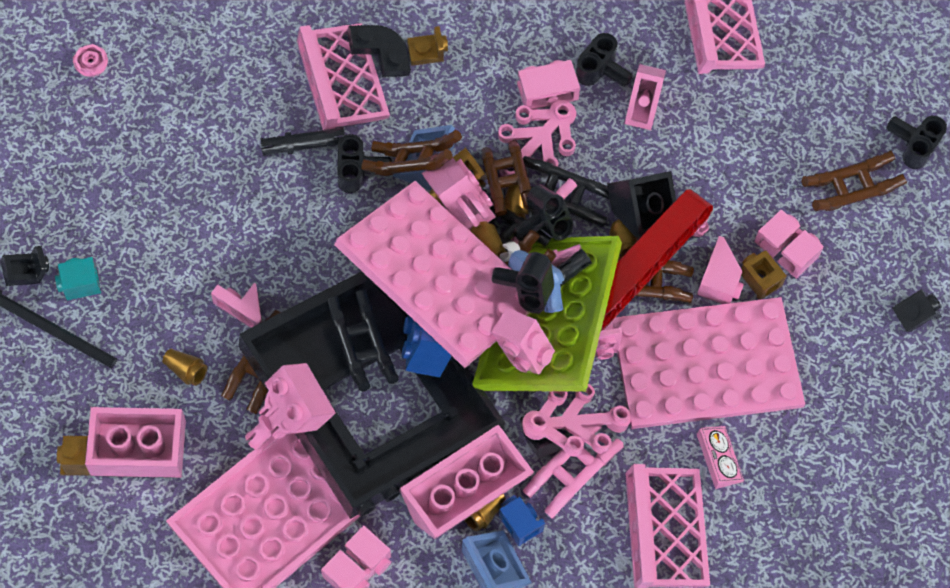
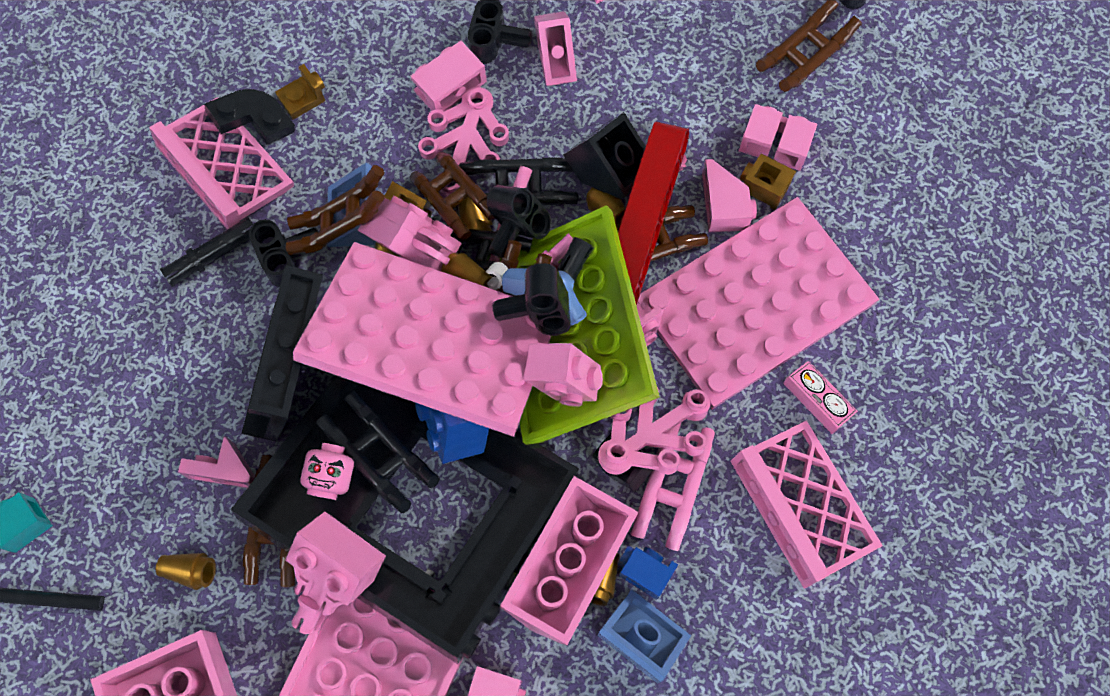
camera: 20 degrees left, 5 degrees up
(319, 245) = (277, 369): none -> black panel
(320, 338) = (327, 471): none -> bright pink head
(917, 310) = (939, 149): black bracket -> none

